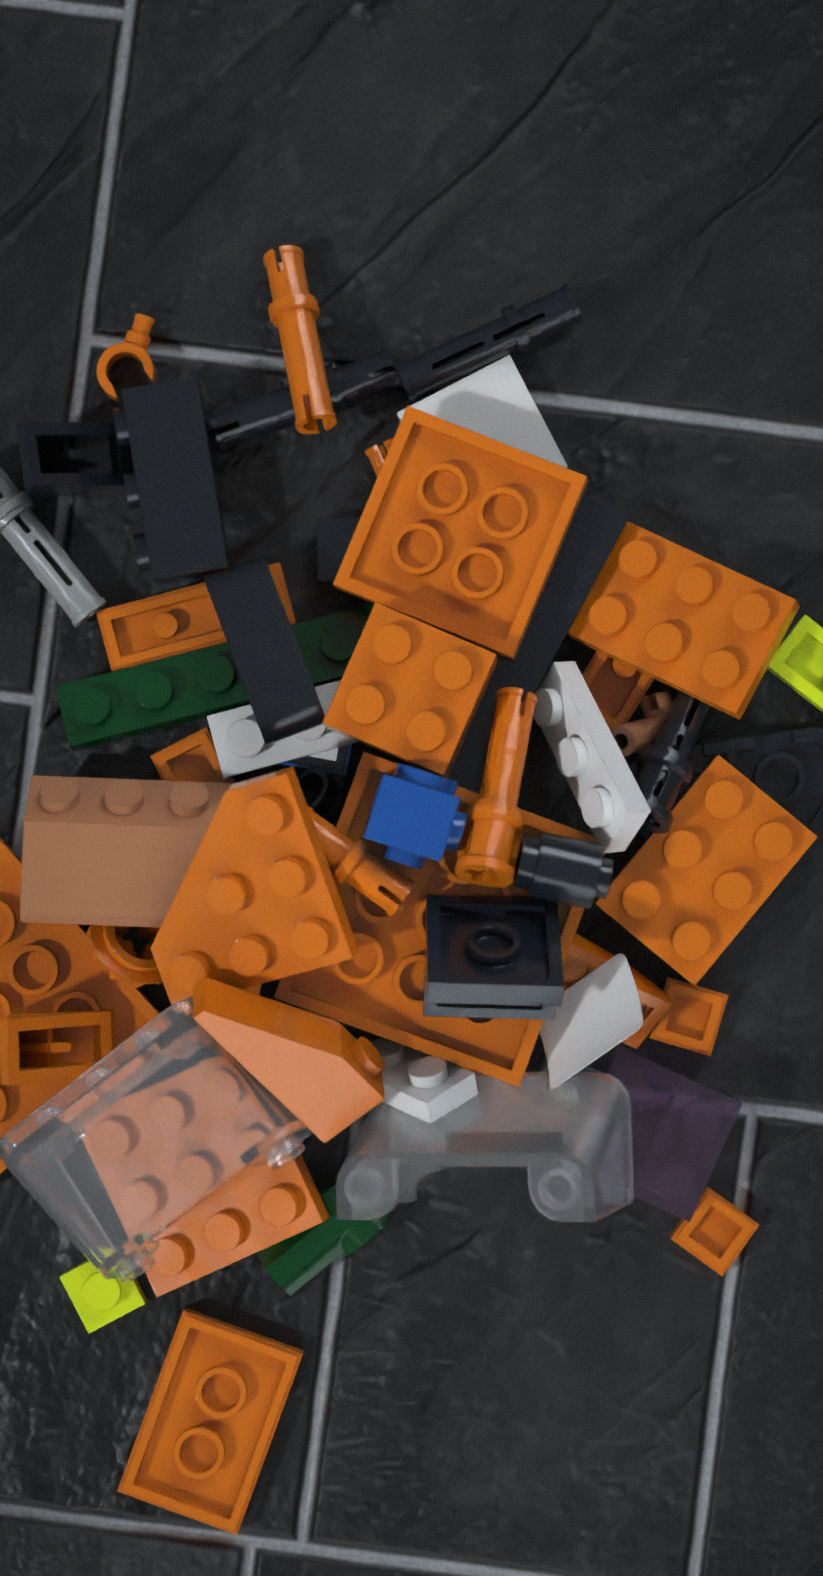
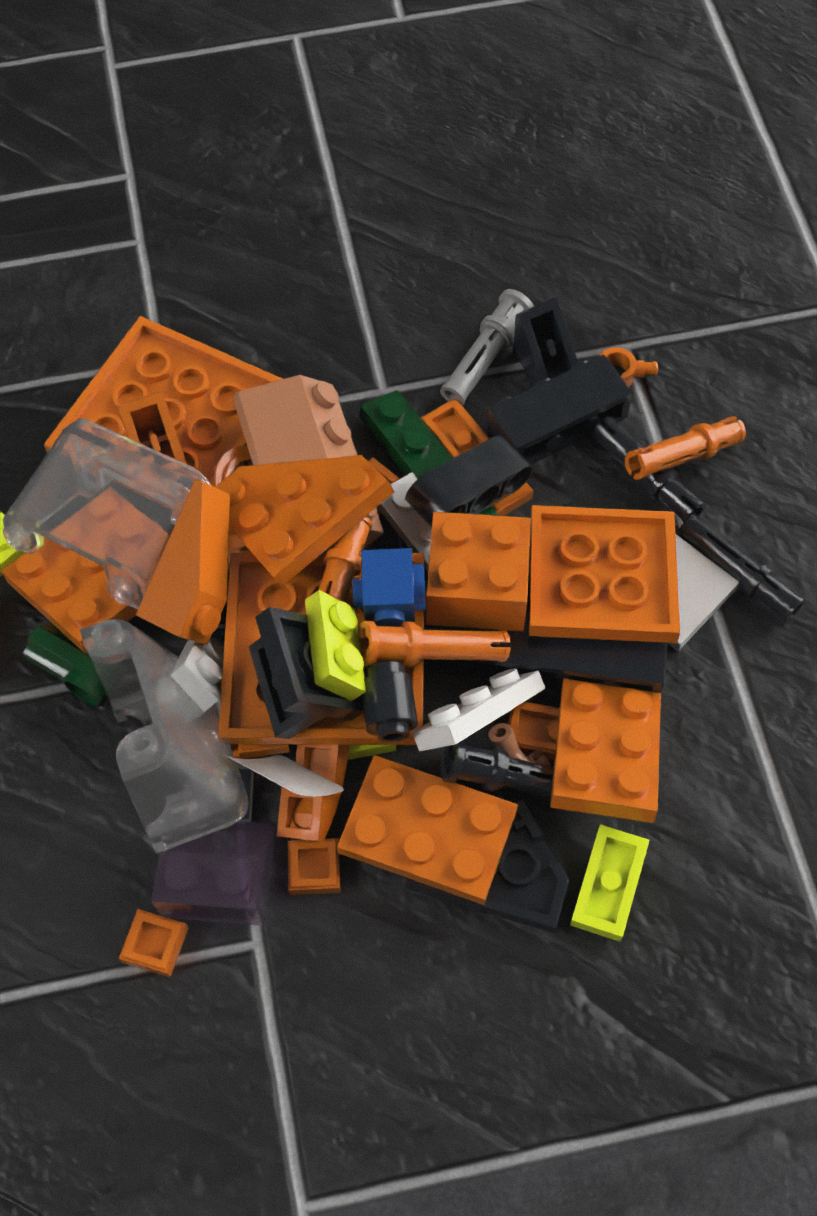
camera: 75 degrees right, 25 degrees down
(476, 912) = (335, 645): none -> neon yellow plate

